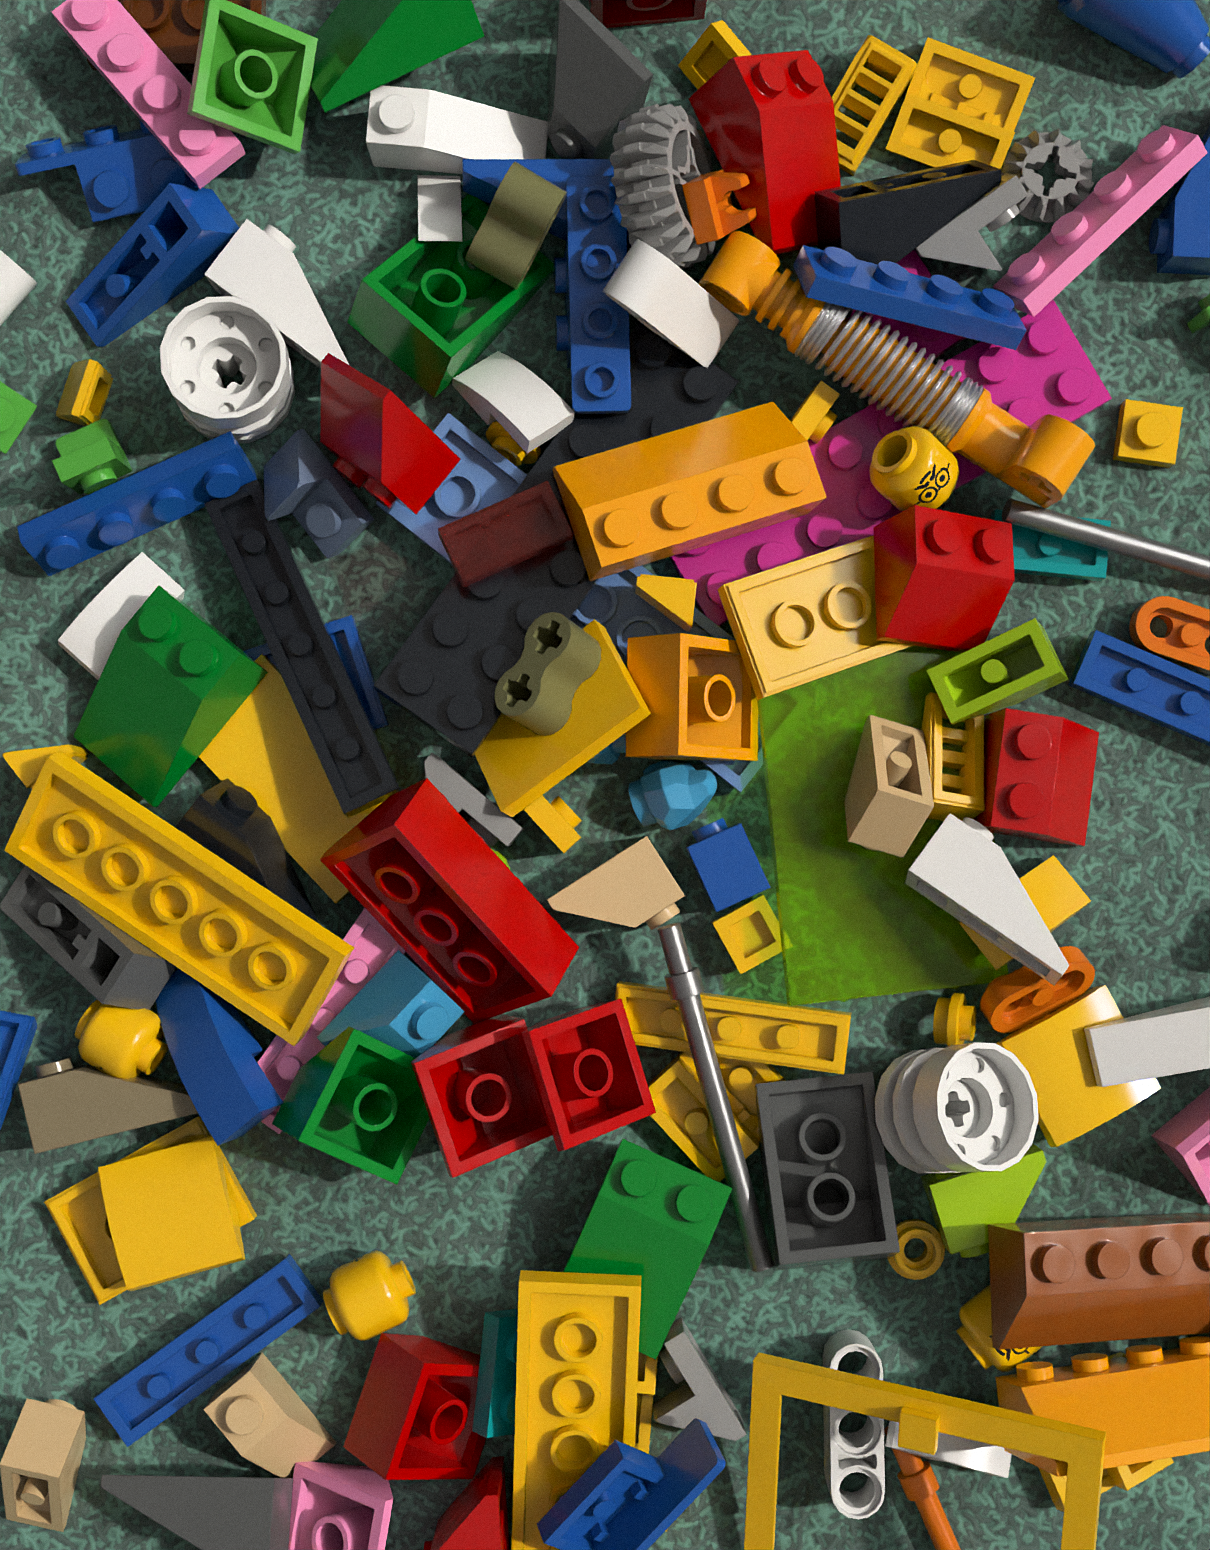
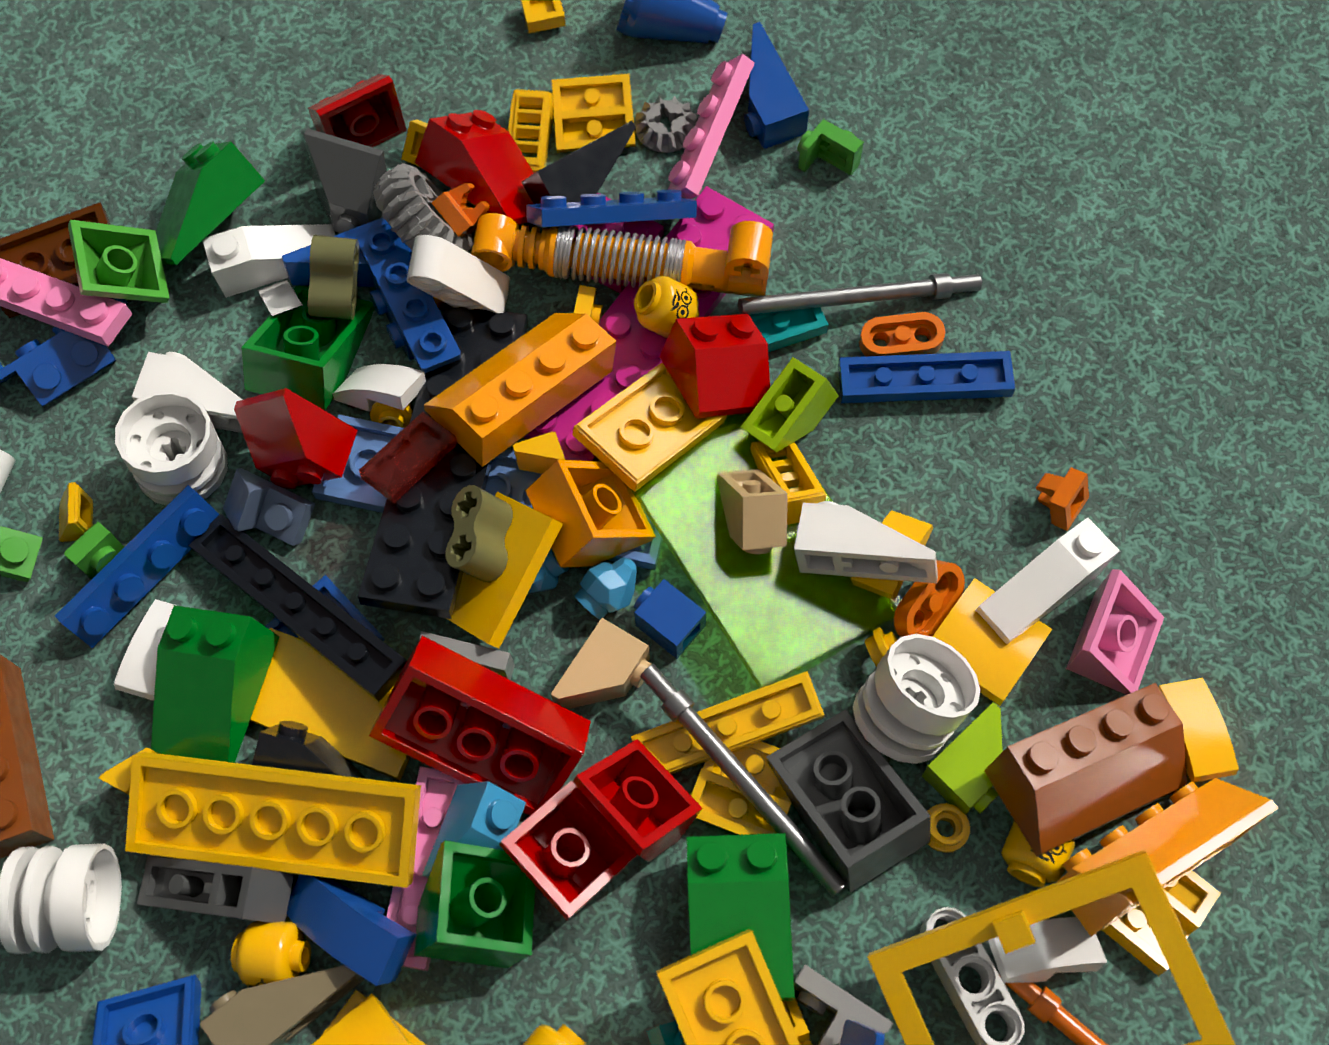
camera: 20 degrees left, 20 degrees down
(153, 261) = (91, 410): blue slope -> none
(556, 821) = (533, 644): yellow plate -> none
(749, 933) = (709, 658): yellow plate -> none
(960, 237) = (628, 173): light grey slope -> none
(1037, 776) = (852, 461): red slope -> none
(1147, 433) = (808, 236): yellow plate -> none

